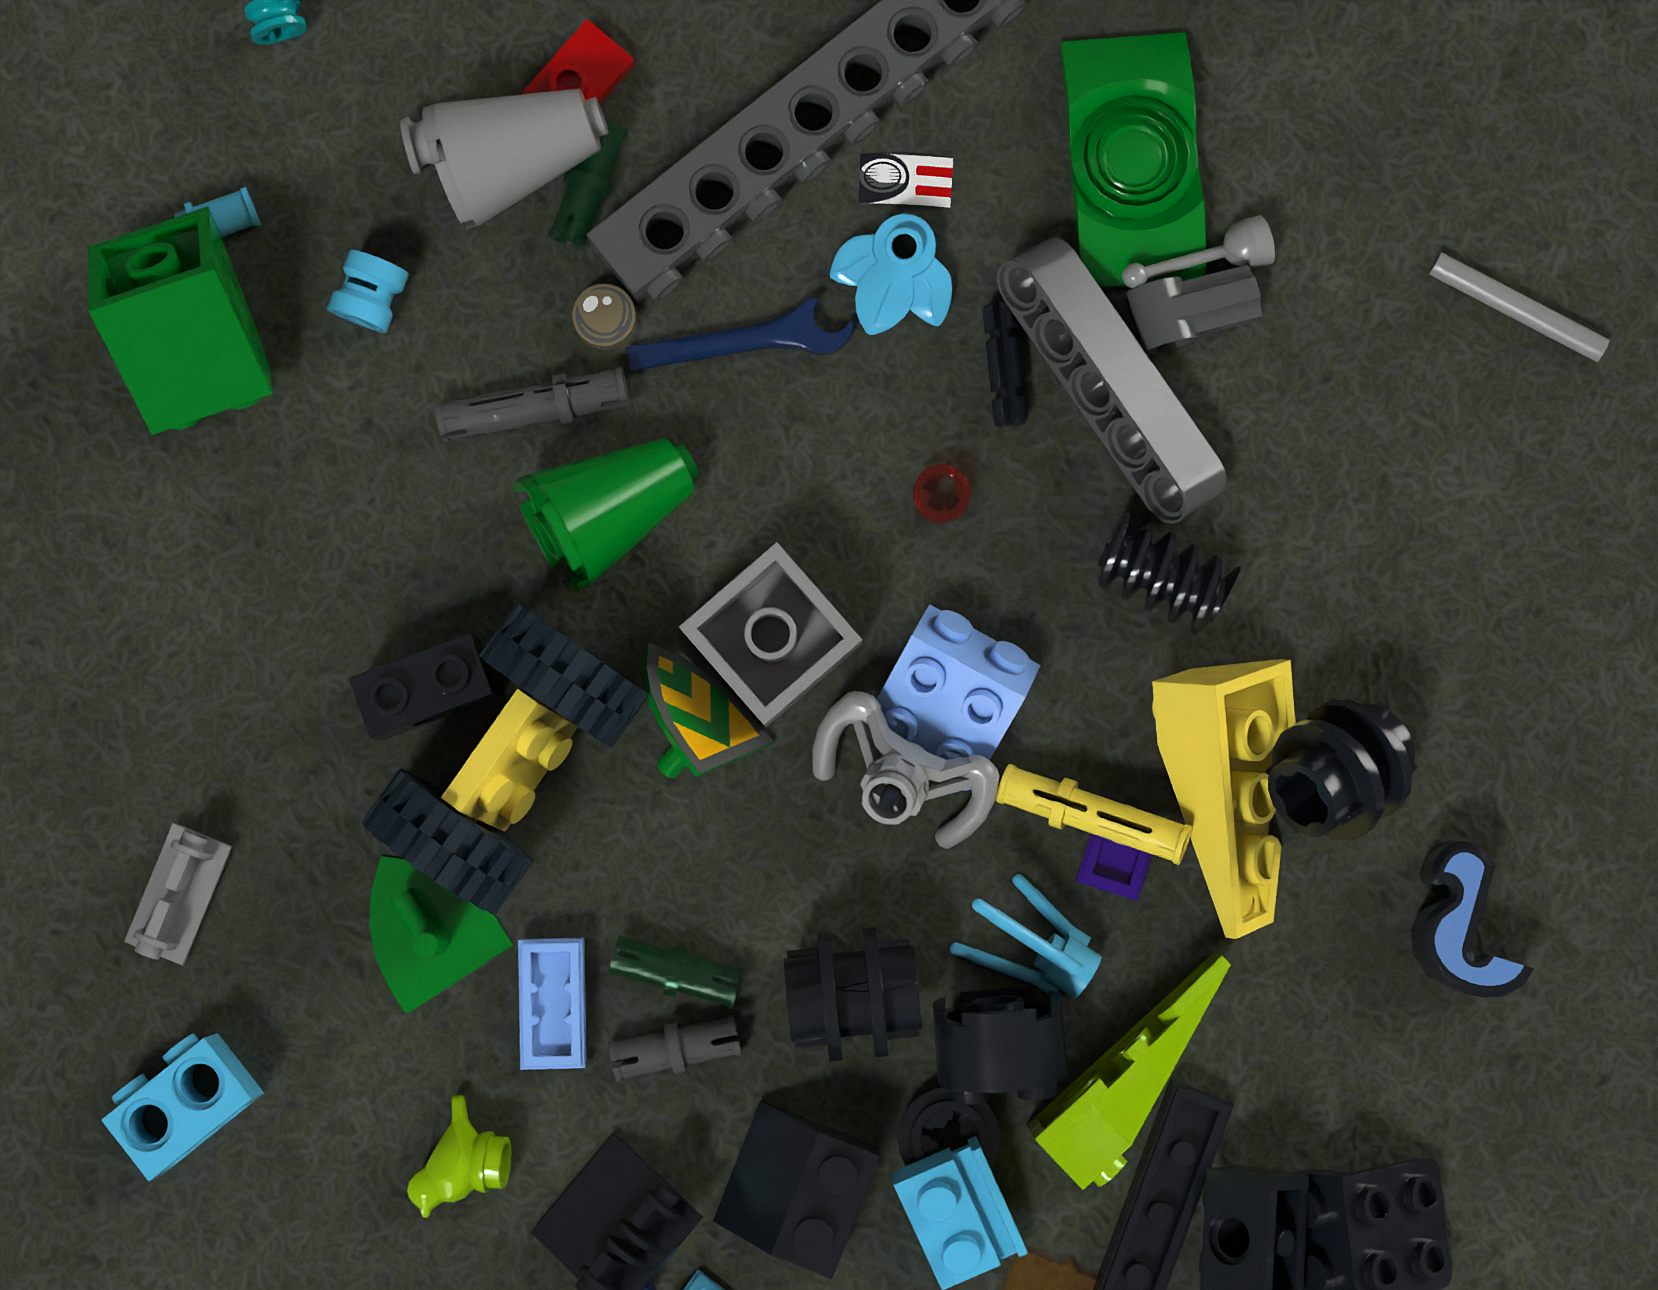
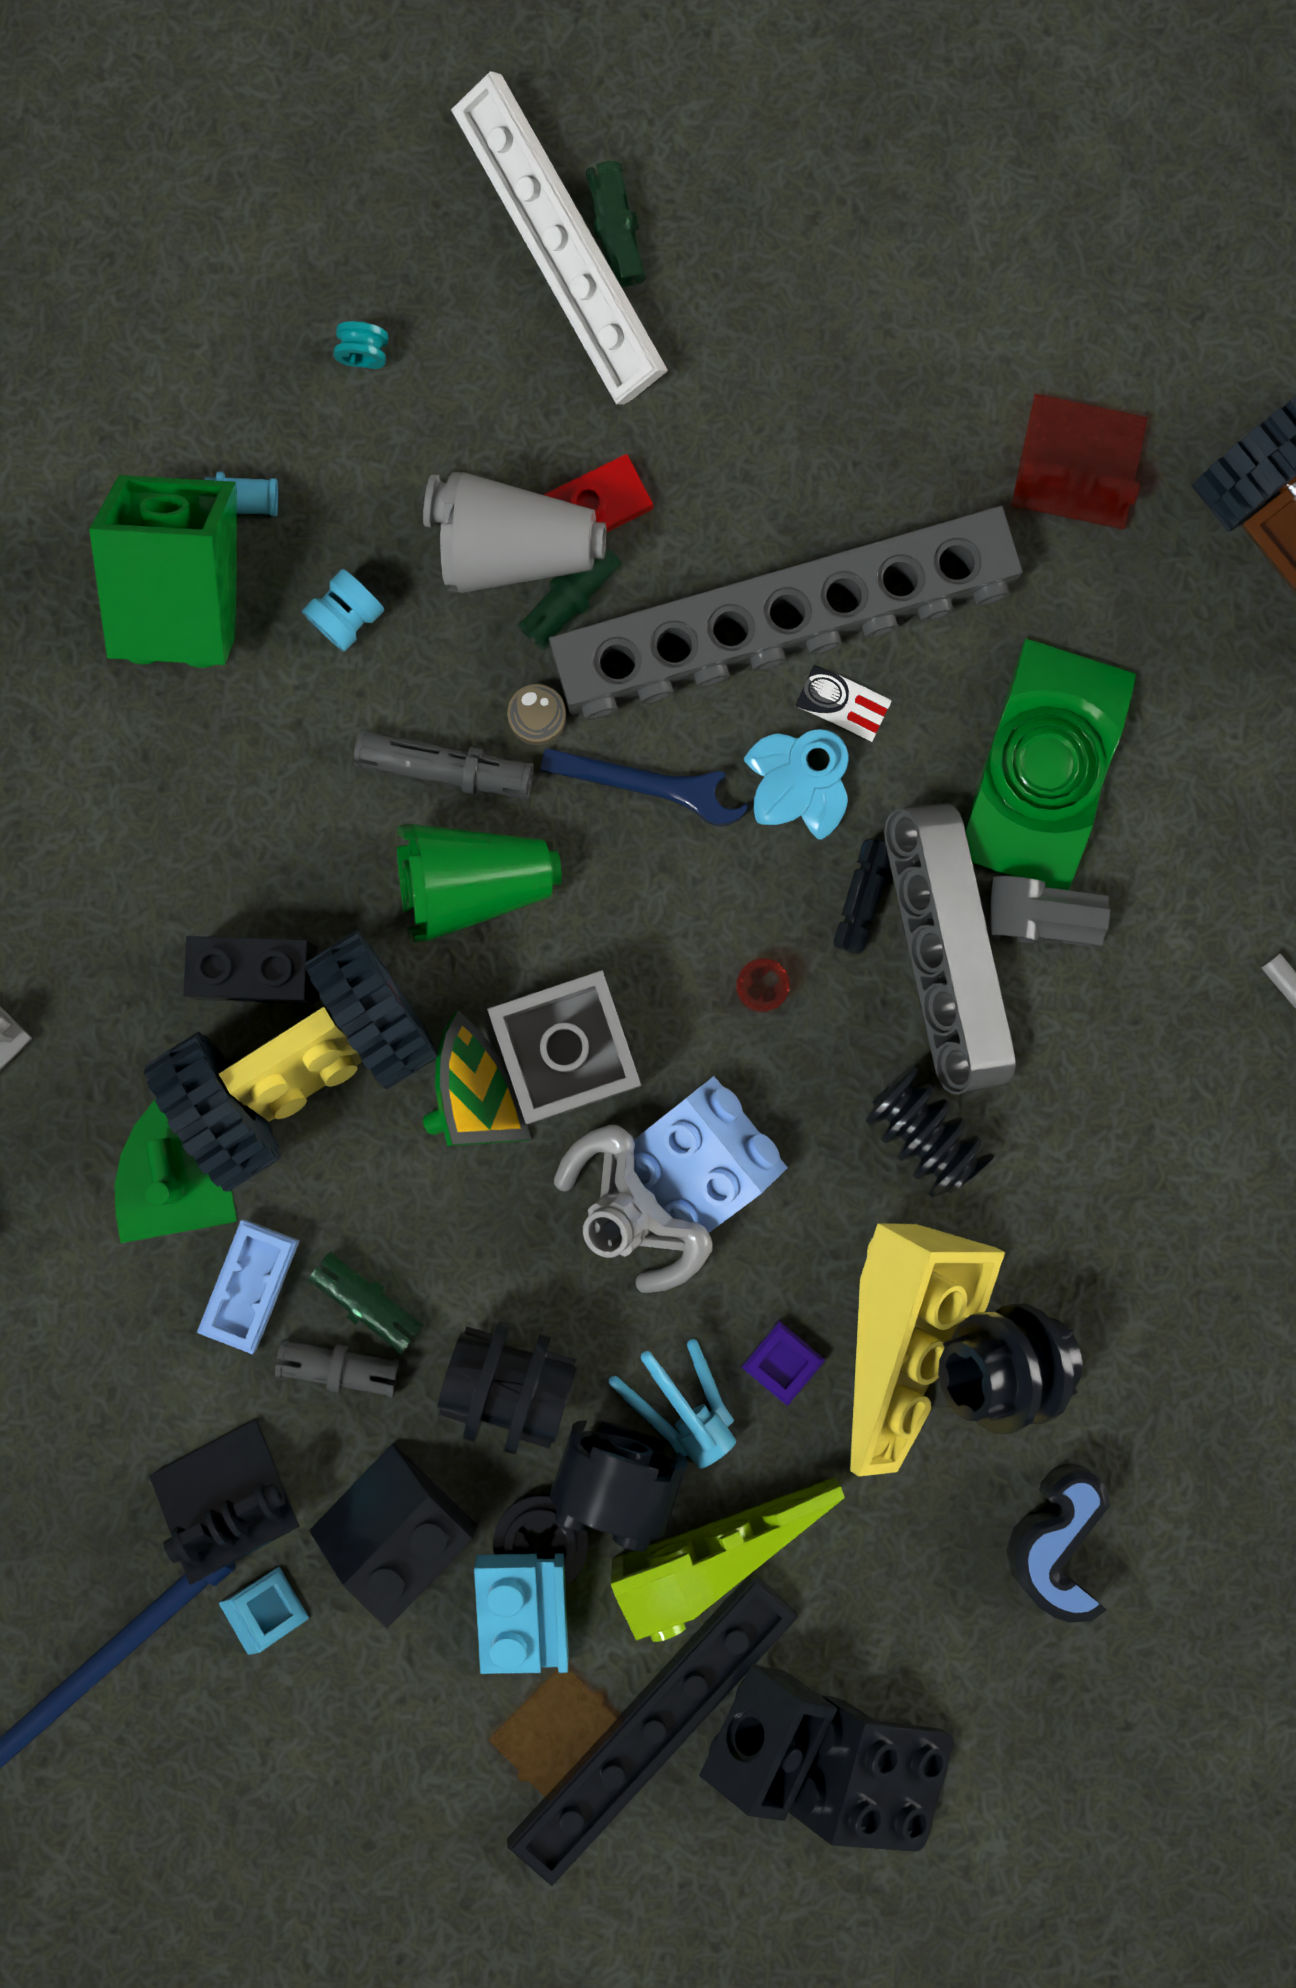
camera: 15 degrees right, 0 degrees up
(460, 1163) = (112, 1392): lime animal -> none
(1022, 789) = (727, 1267): light yellow pin -> none
(1244, 244) = (1112, 877): light grey hinge -> none

